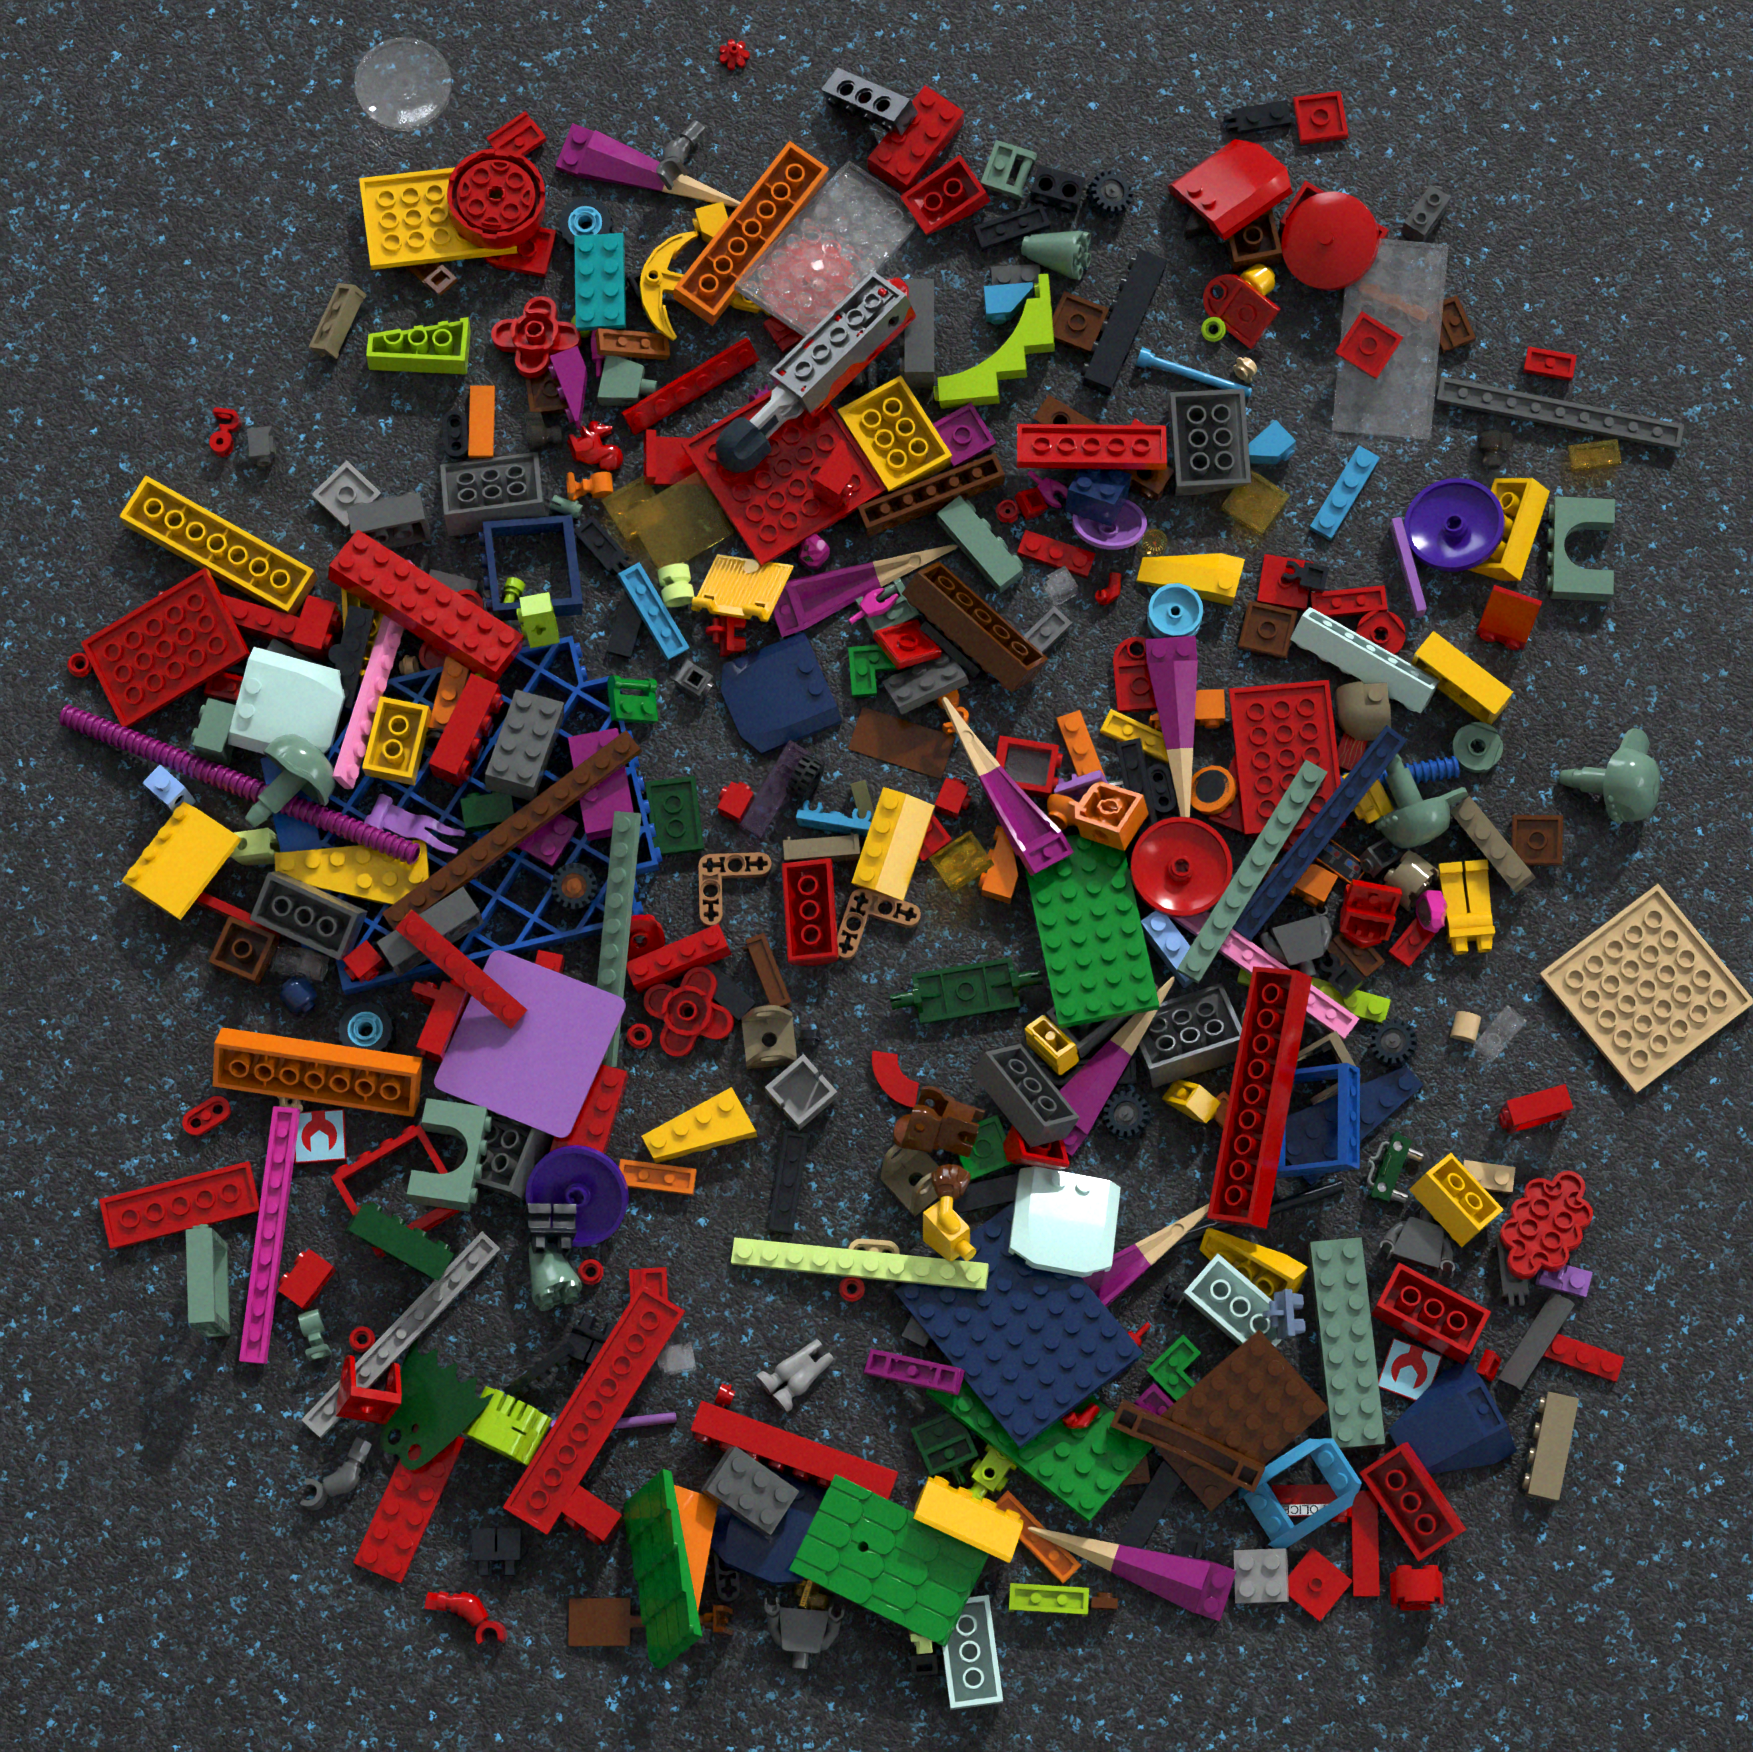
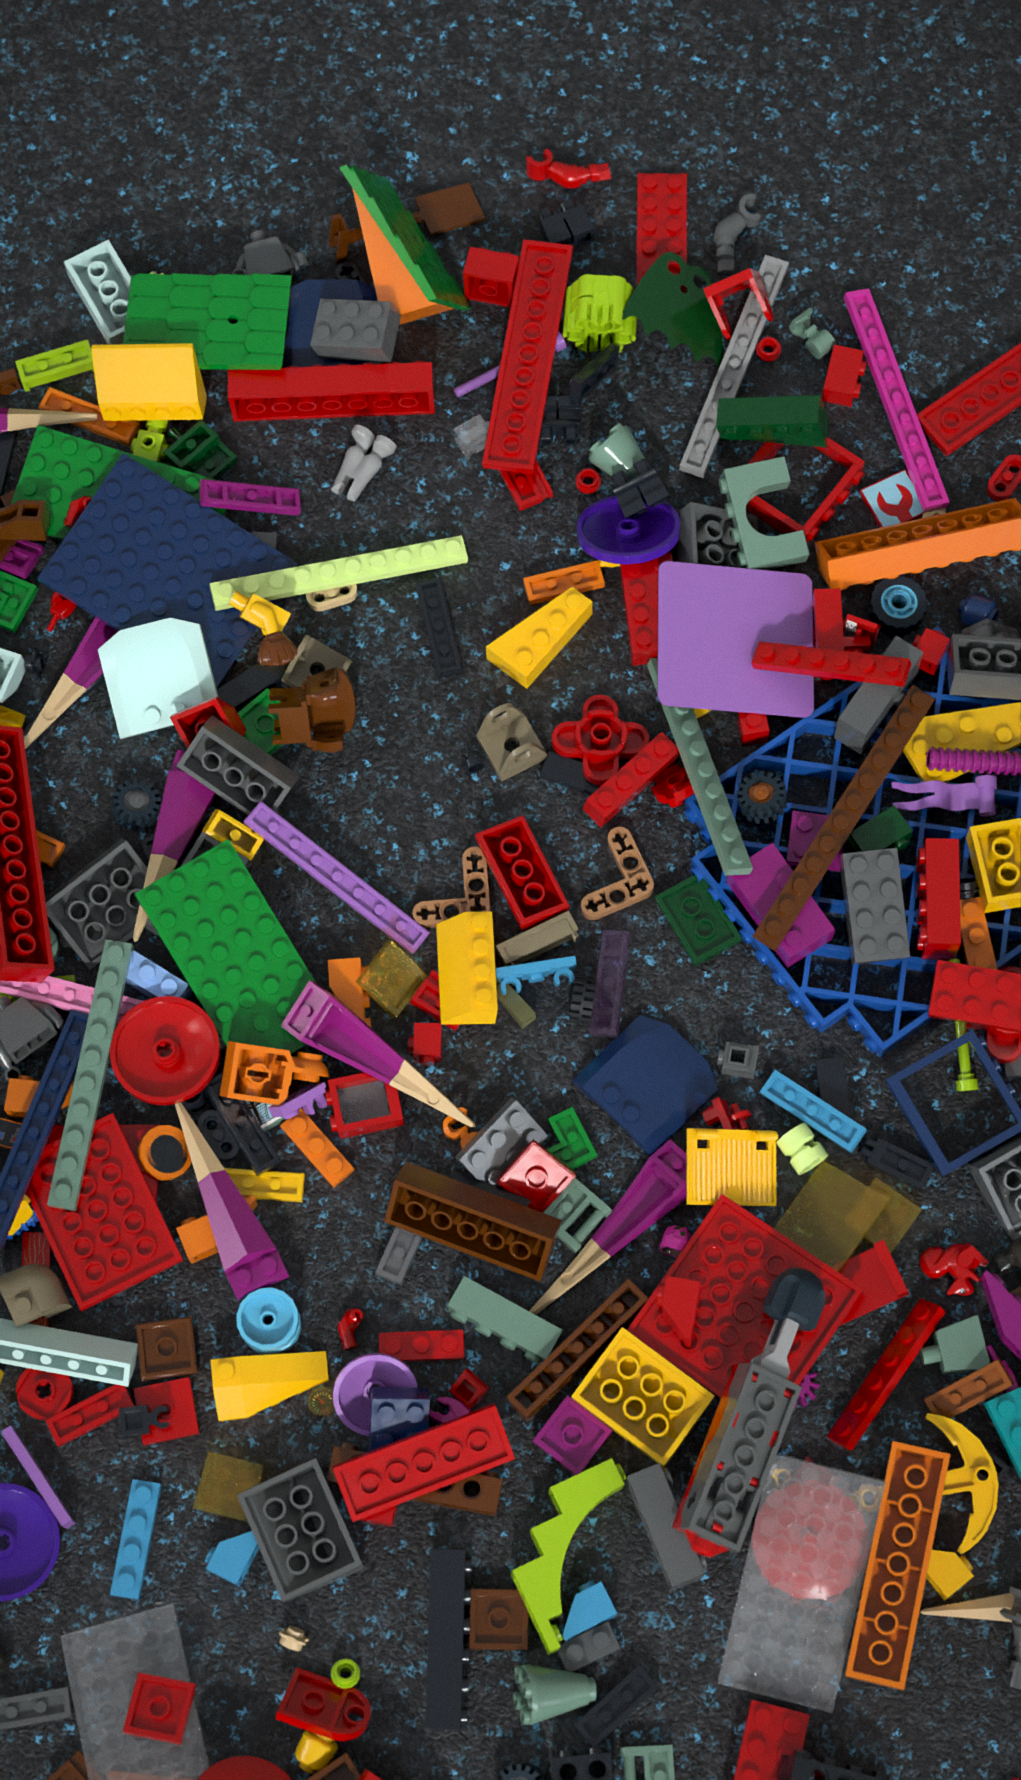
camera: 160 degrees right, 5 degrees down
(207, 1282) = (917, 281): sand green window -> none
(412, 1011) = (859, 627): none -> red door
(538, 619) = (922, 1041): lime brick -> none
(567, 507) = (954, 1191): sand green pin -> none
(599, 485) = (933, 1226): orange leg -> none
(630, 707) = (786, 1005): green plate -> none
(639, 1028) = (634, 695): red plate -> none
(724, 1395) = (418, 424): red plate -> none
(735, 801) = (643, 955): red brick -> none
(767, 971) = (538, 803): reddish brown container -> none
(800, 1093) = (456, 705): light grey piece -> none
(851, 1281) = (339, 550): red plate -> none
(871, 608) = (589, 1201): dark pink hand -> none
(892, 1079) = (378, 755): red tile -> none
(901, 742) = (491, 1084): reddish brown sticker -> none
(945, 196) = (703, 1708): red slope -> none
(966, 990) = (359, 847): dark green plate -> none
(975, 971) = (336, 877): none -> medium lavender tile
(1007, 505) = (491, 1364): red plate -> none
(1060, 586) = (402, 1307): clear window -> none
(1132, 678) = (293, 1244): red tile -> none
(1148, 359) = (404, 1607): dark azure piece -> none
(1192, 1100) = (77, 837): yellow slope -> none

